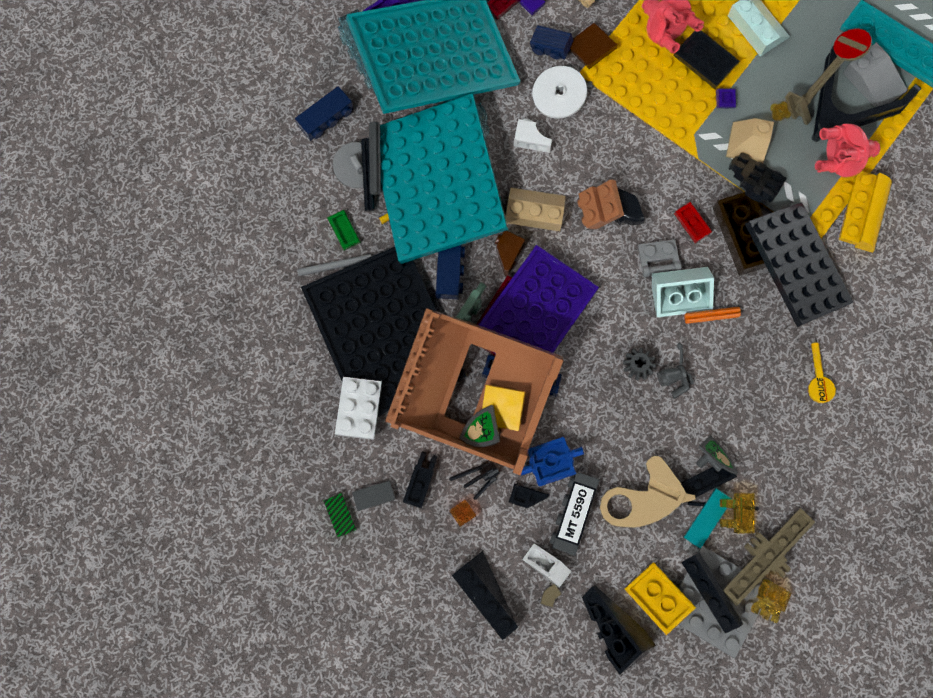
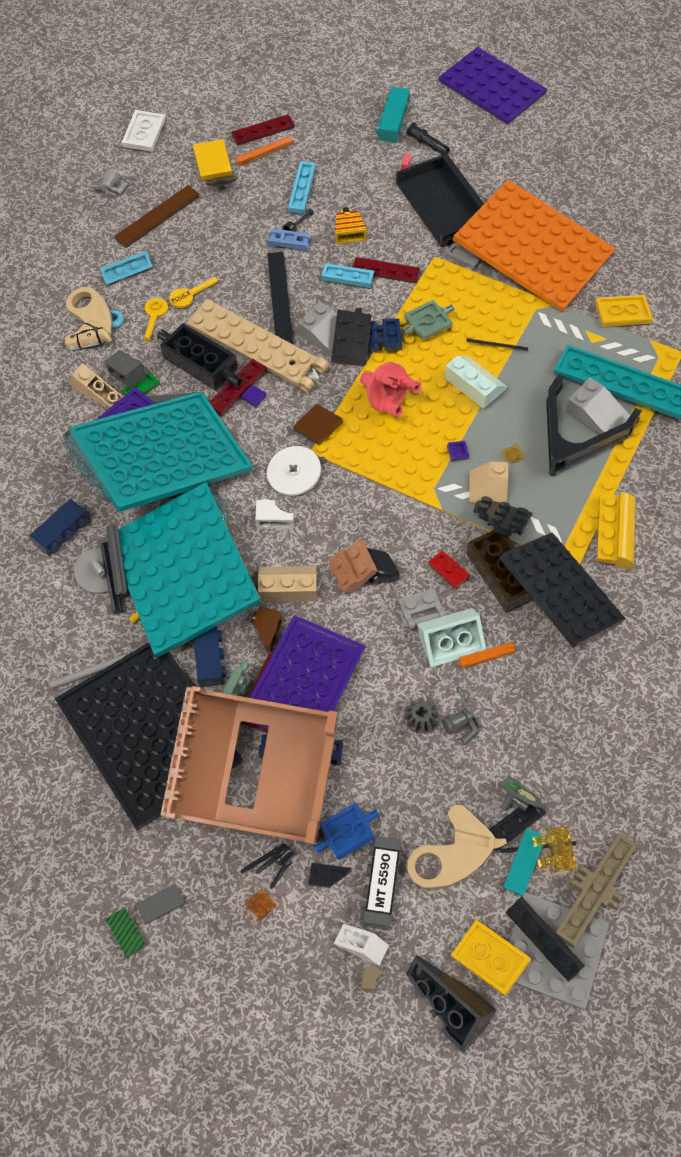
camera: 10 degrees left, 15 degrees down
(343, 230) = (93, 636): green tile -> none
(358, 408) = (131, 812): white plate -> none
(419, 482) = (208, 880): black hinge -> none
(482, 429) = (266, 807): shield -> none
(483, 590) = (295, 985): black wedge -> none
(507, 405) = (284, 781): yellow tile -> none
(551, 42) = (277, 426): dark blue brick -> none
(706, 58) = (431, 417): black plate -> none
(772, 600) = (610, 930): clear yellow plate -> none
(820, 388) = (611, 707): yellow piece -> none
(846, 150) = (583, 475): coral piece -> none
(847, 47) = (562, 384): dark tan piece -> none

